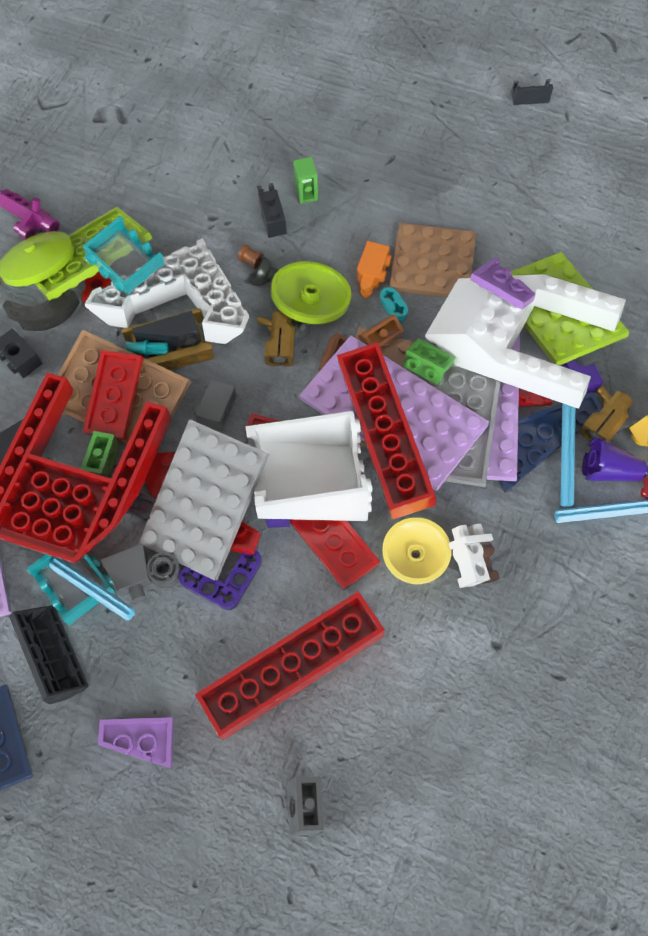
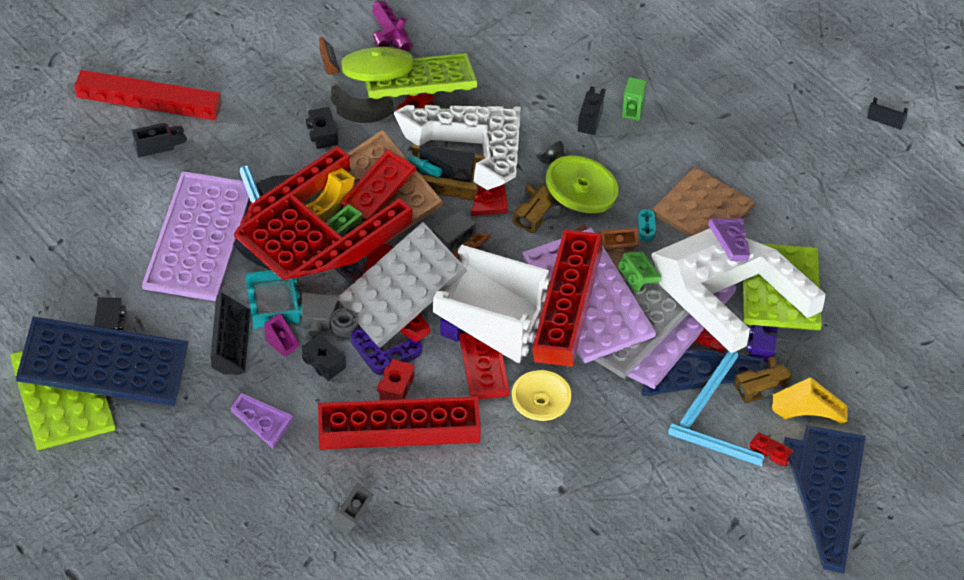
camera: 25 degrees right, 15 degrees down
(69, 438) = (337, 187): none -> yellow arch
(92, 588) = (284, 305): medium azure axle -> none
(104, 622) = (279, 335): none -> magenta slope
(122, 256) = (443, 88): window -> none
(155, 615) = (323, 357): none -> black brick
(232, 354) = (490, 201): none -> red wing
(243, 413) = (474, 242): none -> dark orange slope
(250, 256) = (549, 134): dark orange bush -> none
(258, 599) = (396, 380): none -> red brick
(372, 267) = (647, 189): orange hinge -> none
(473, 553) = (583, 416): white hips -> none
(612, 463) = (740, 411): dark purple cone -> none

